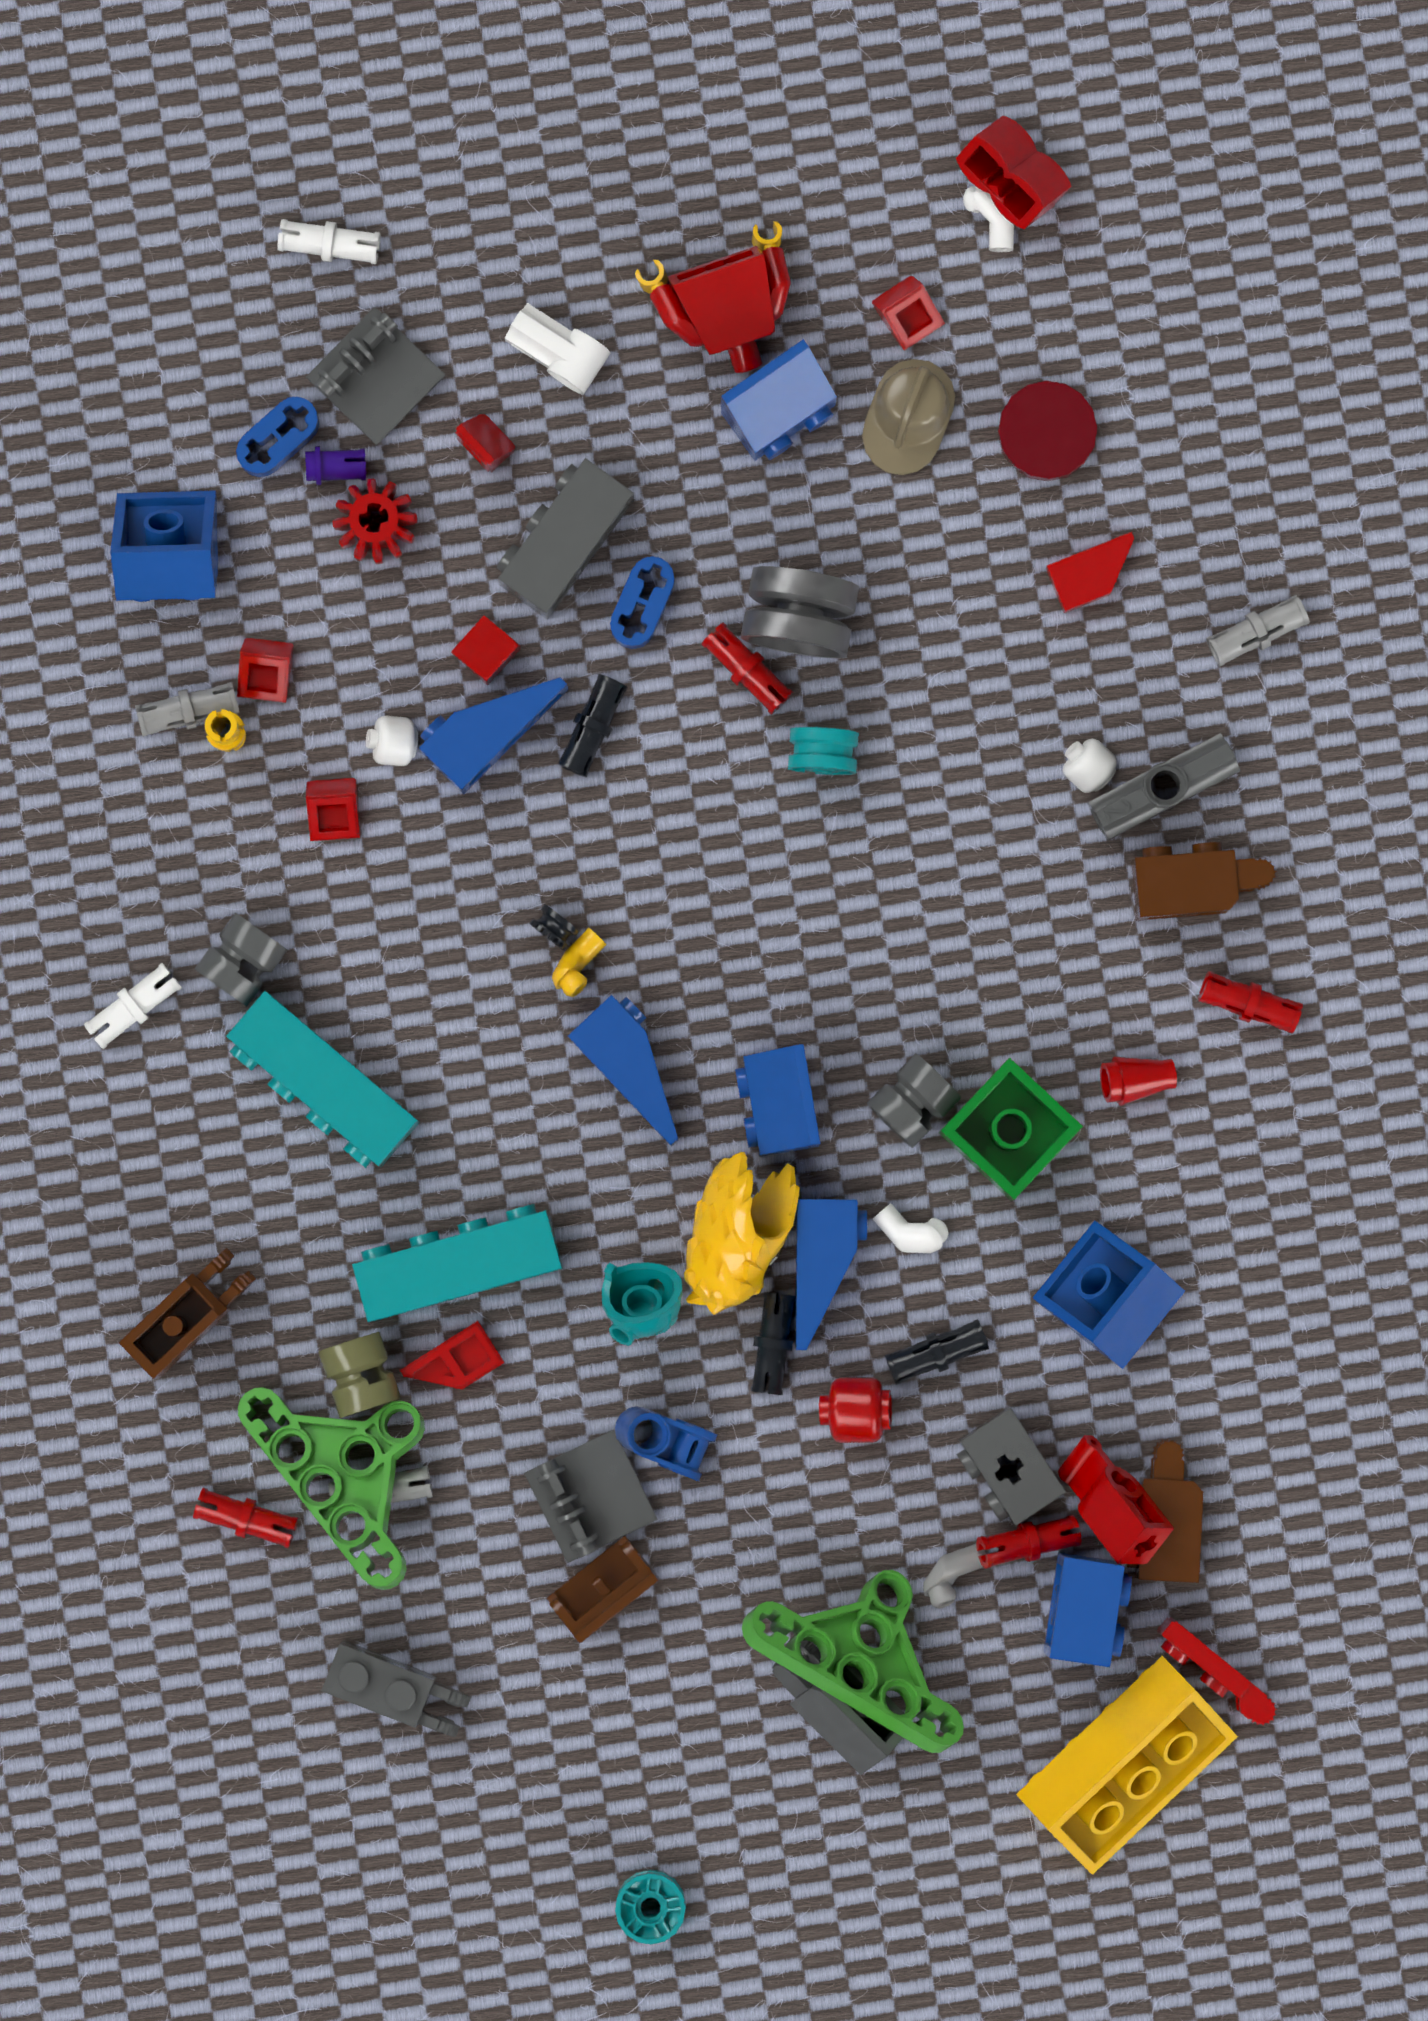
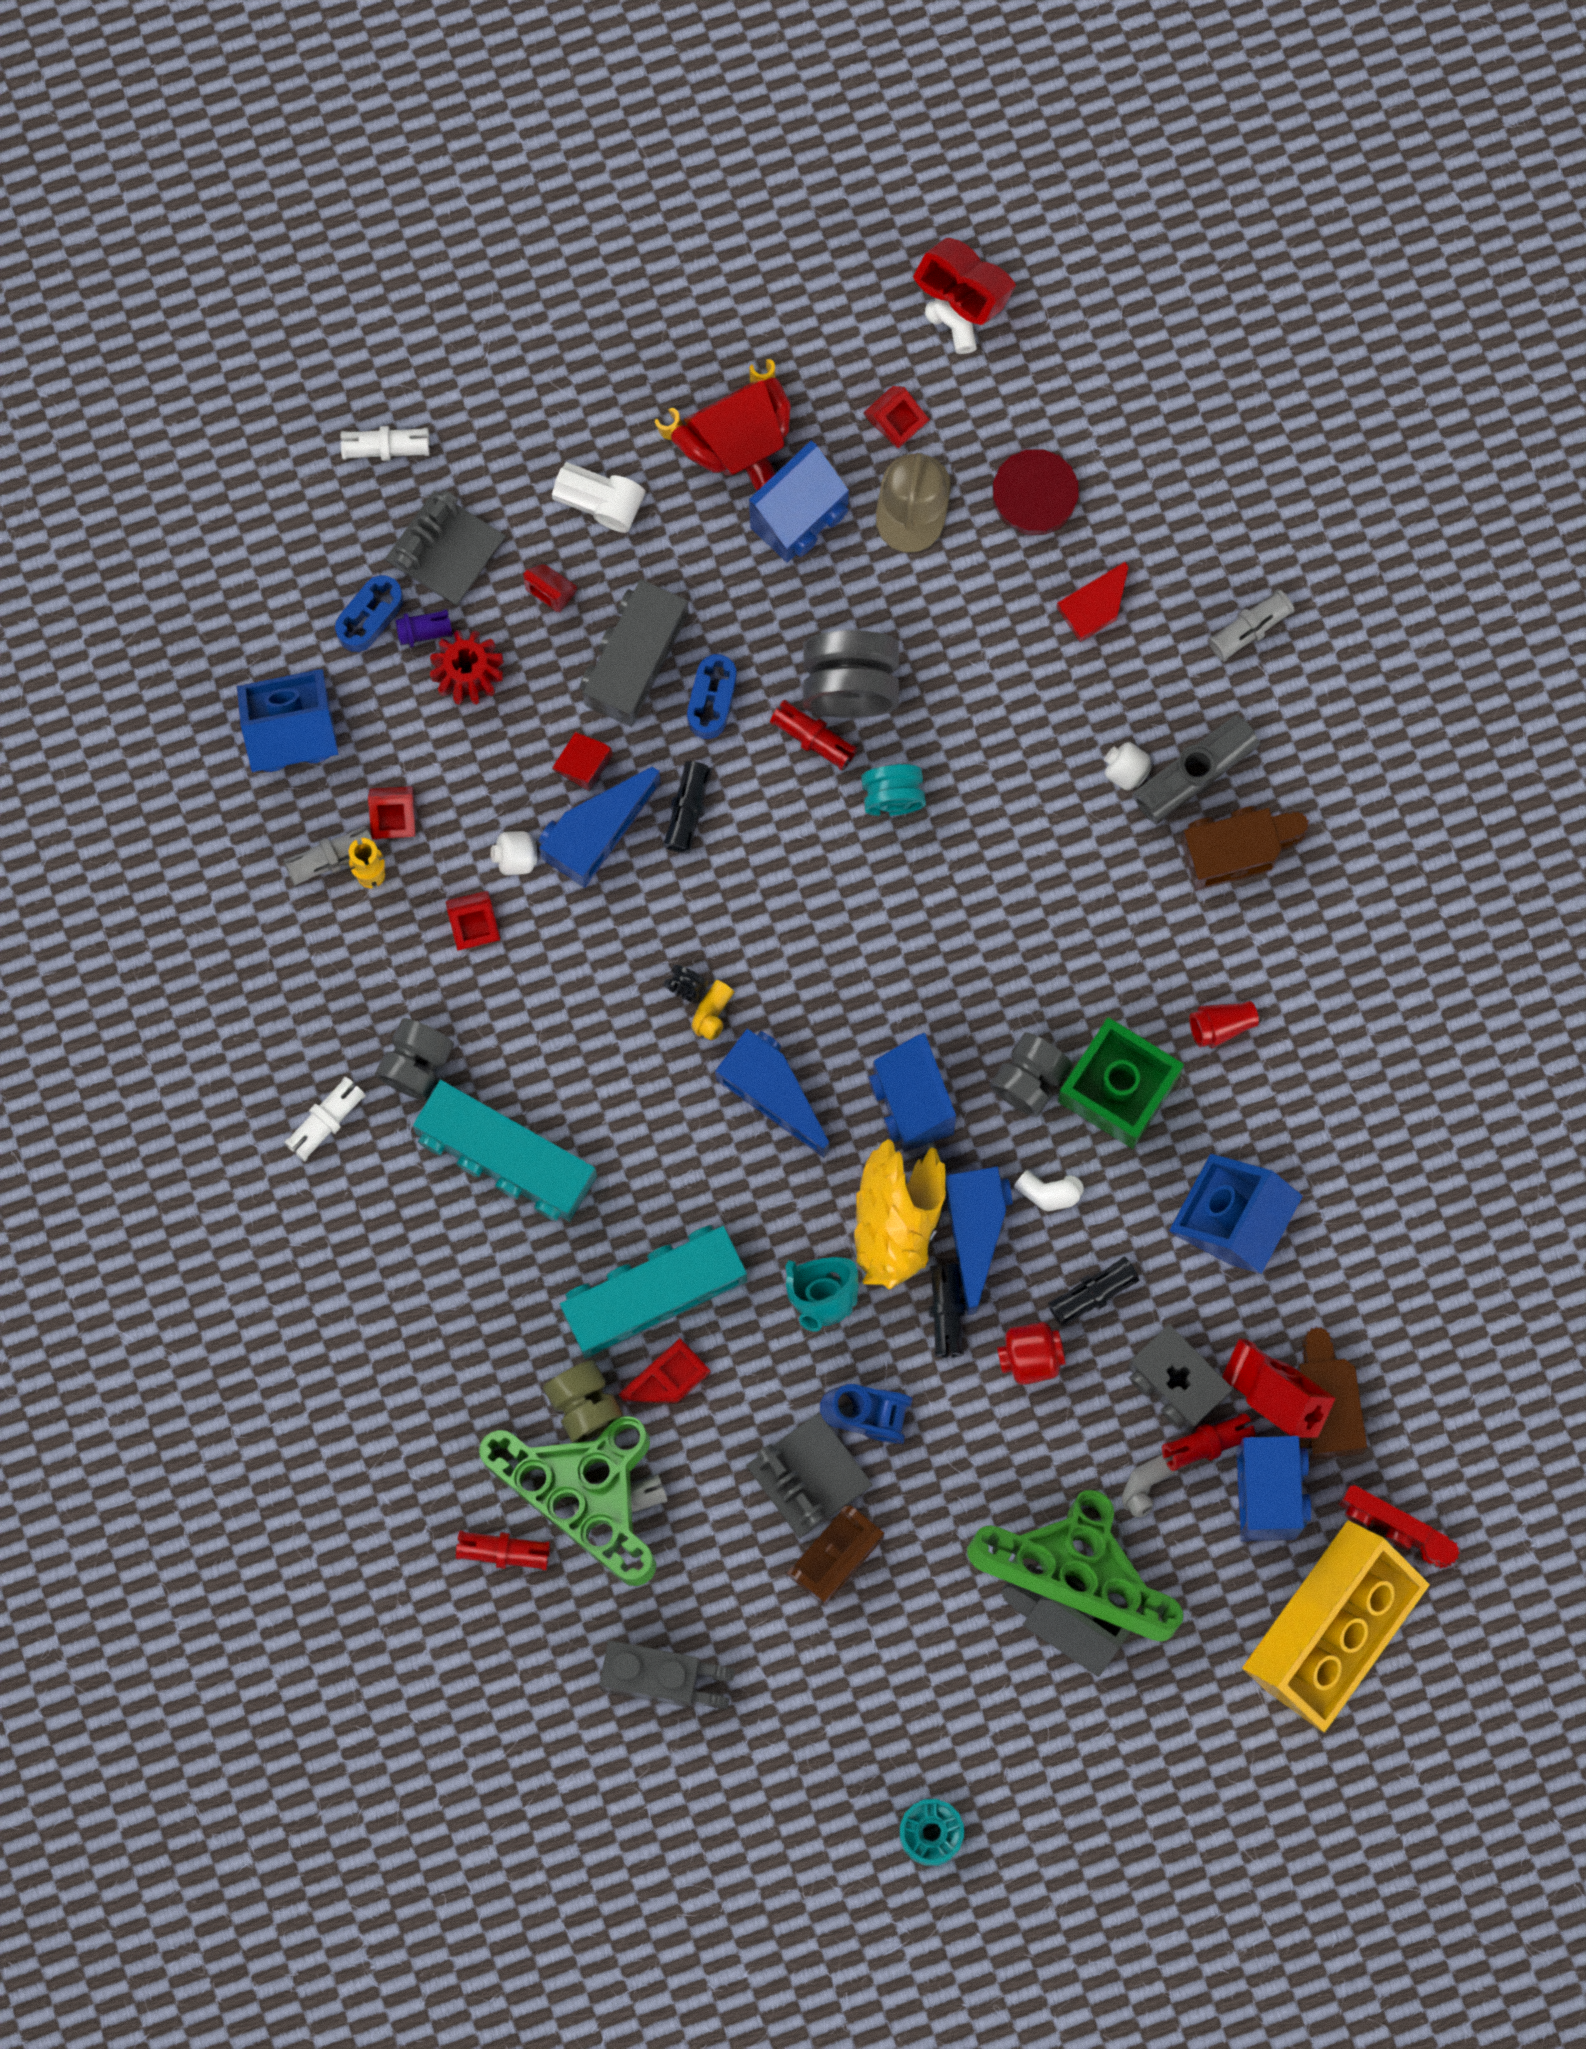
camera: 10 degrees left, 10 degrees down
(183, 1318) = (417, 1379): reddish brown hinge -> none
(1250, 1002) = (1309, 939): red pin -> none

